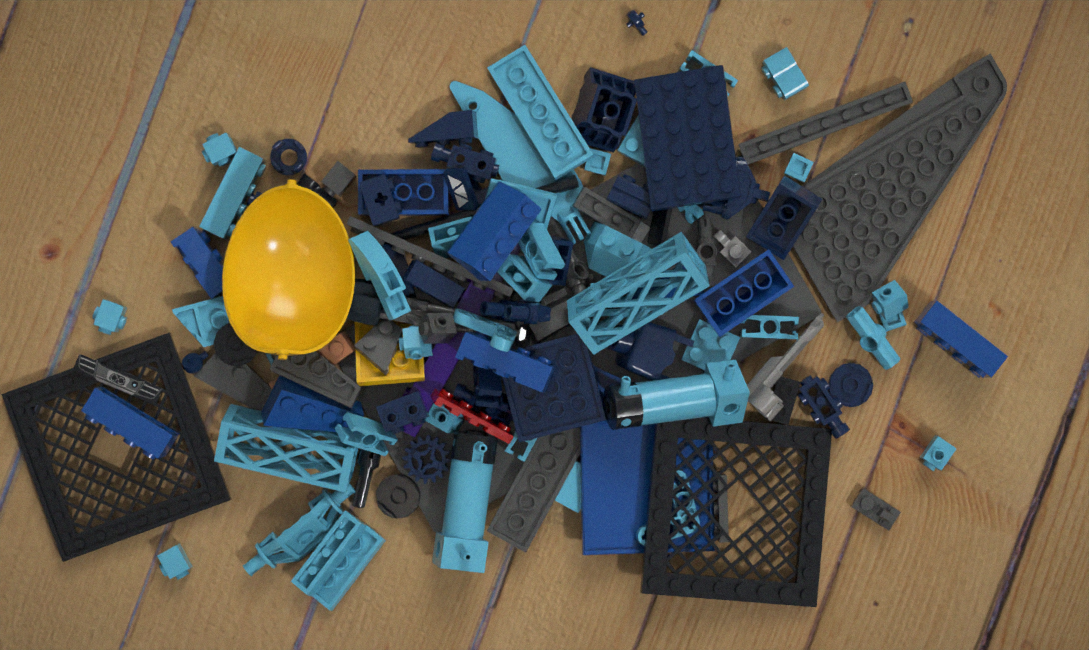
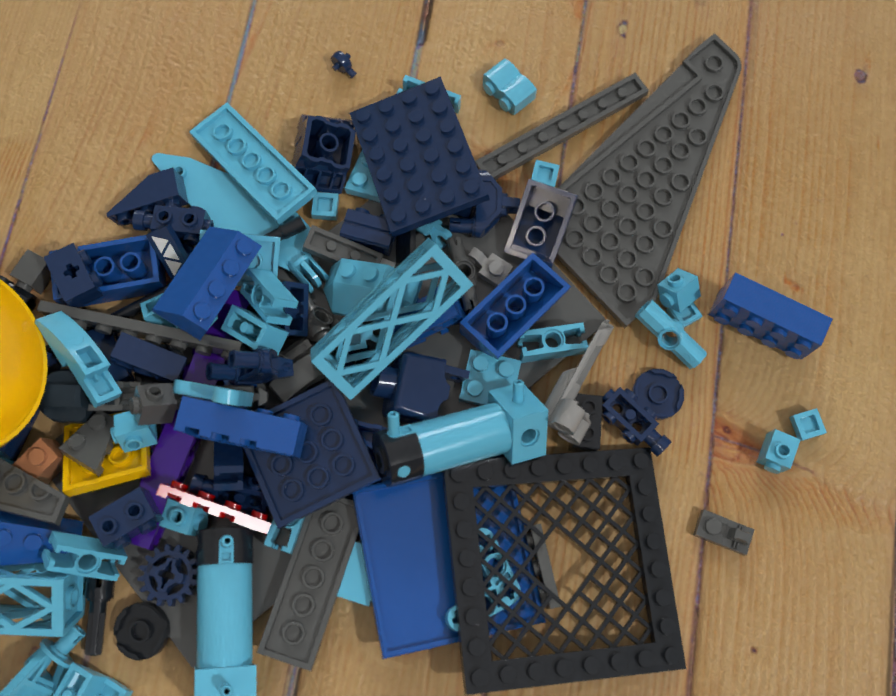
camera: 20 degrees left, 15 degrees down
(969, 435) = (808, 424): none -> medium azure plate

